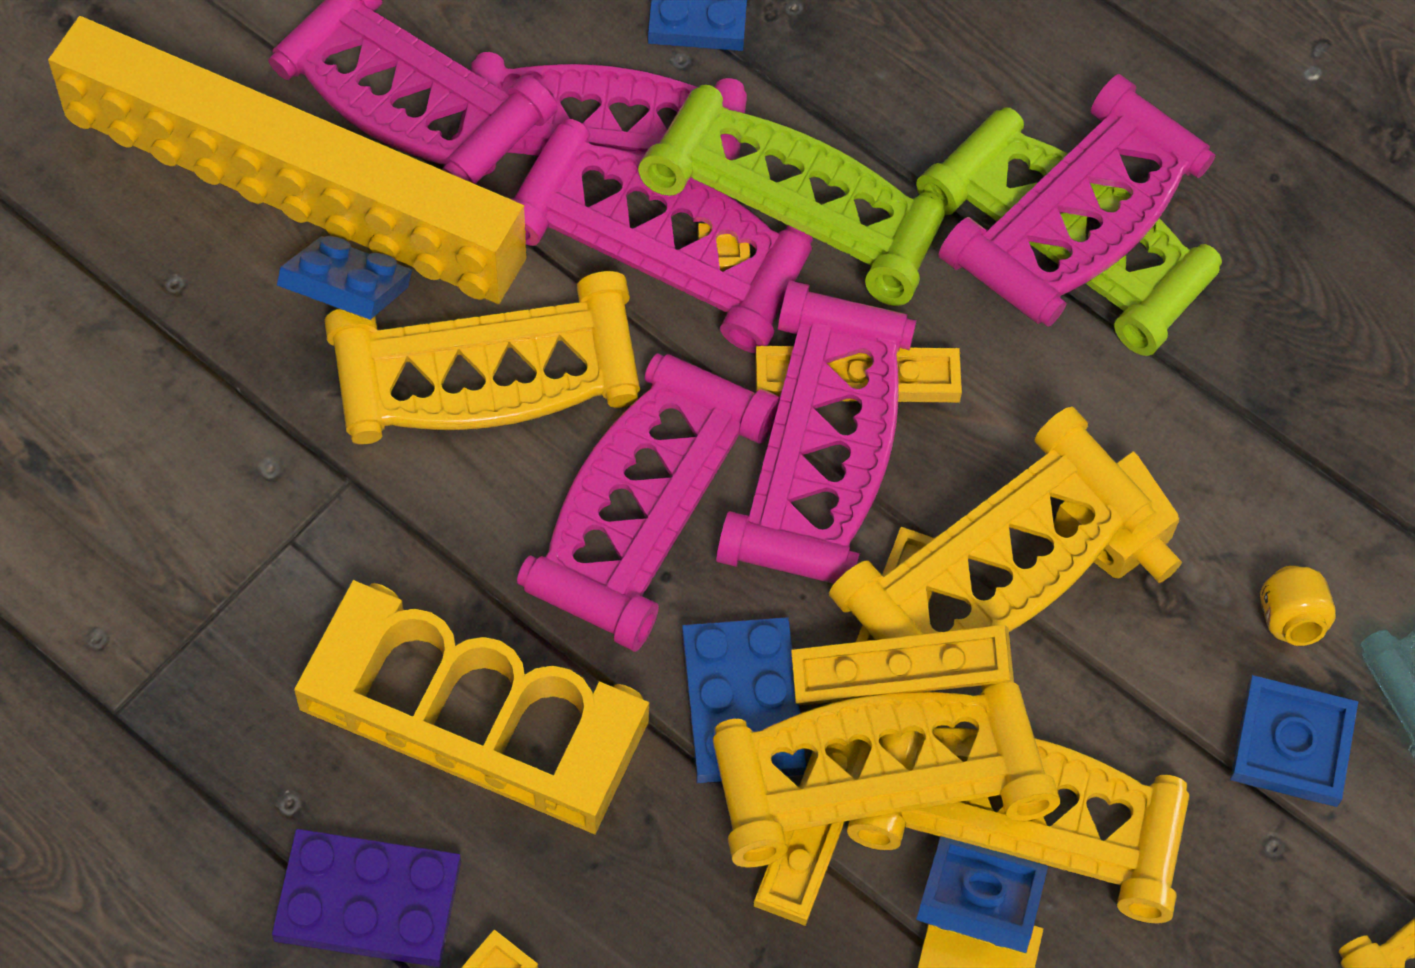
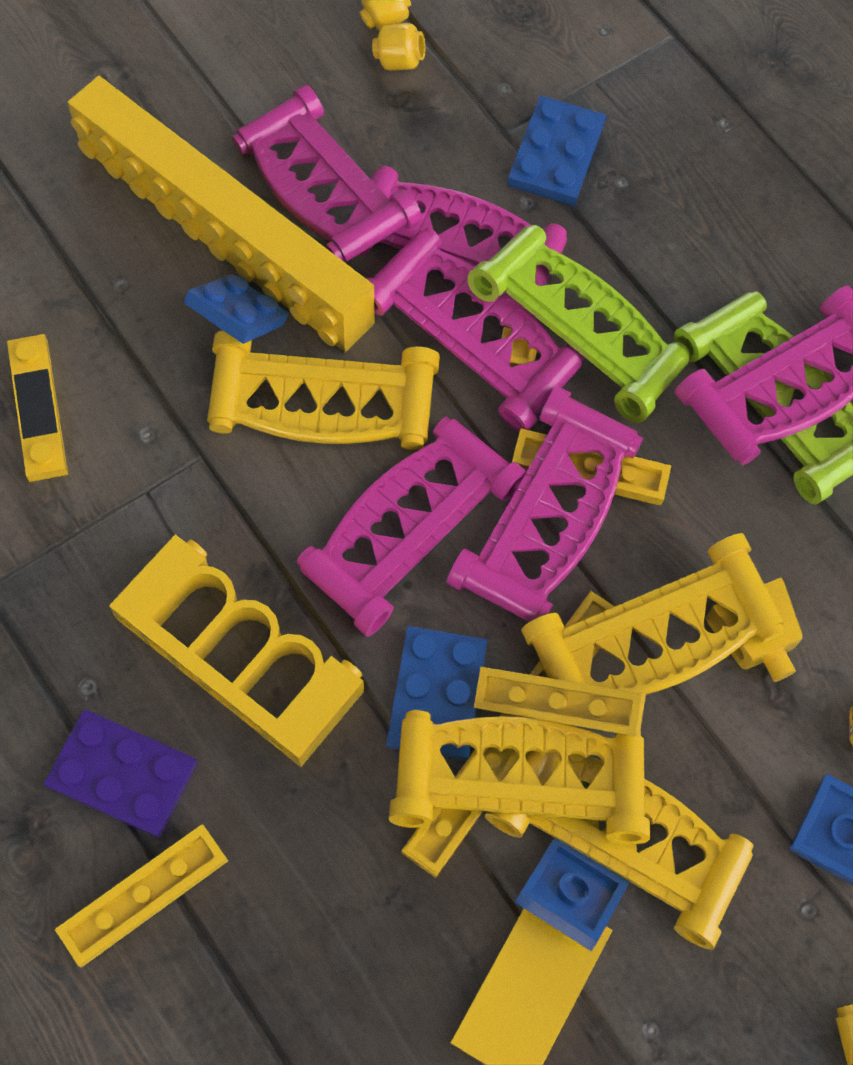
camera: 15 degrees right, 5 degrees up
(113, 467) = (37, 408): none -> yellow plate

